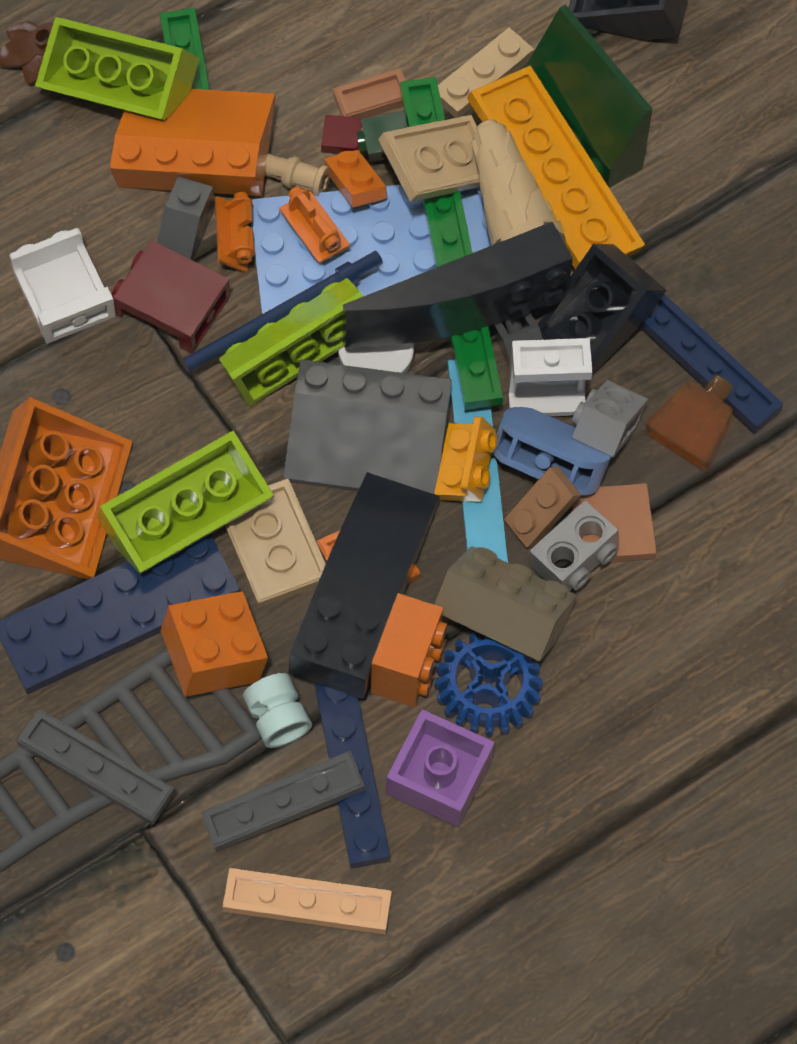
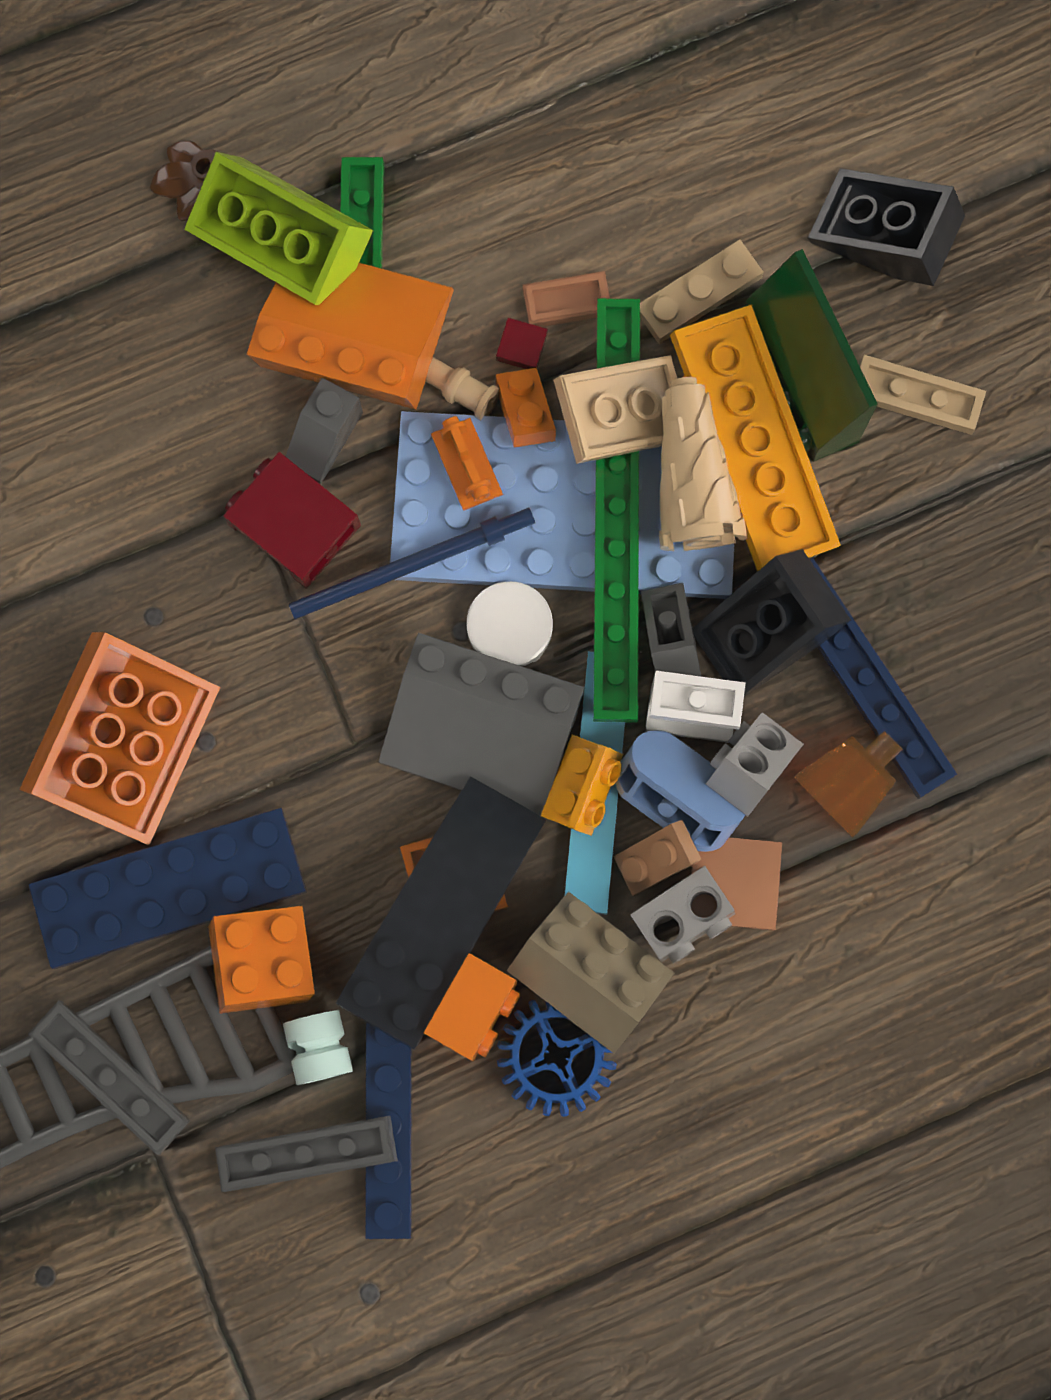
camera: 15 degrees right, 15 degrees up
(61, 285) = (173, 483): white panel -> none
(184, 503) = (259, 785): lime slope -> none
(233, 236) = (374, 456): orange hinge -> none
(273, 355) = (423, 604): lime slope -> none
(276, 547) = (352, 838): tan tile -> none
(307, 901) = (311, 1273): light nougat plate -> none
(373, 128) = (565, 357): dark green brick -> none
(440, 768) = (482, 1152): medium lavender brick -> none
(464, 293) = (622, 594): black slope -> none
(694, 122) = (923, 395): none -> tan plate

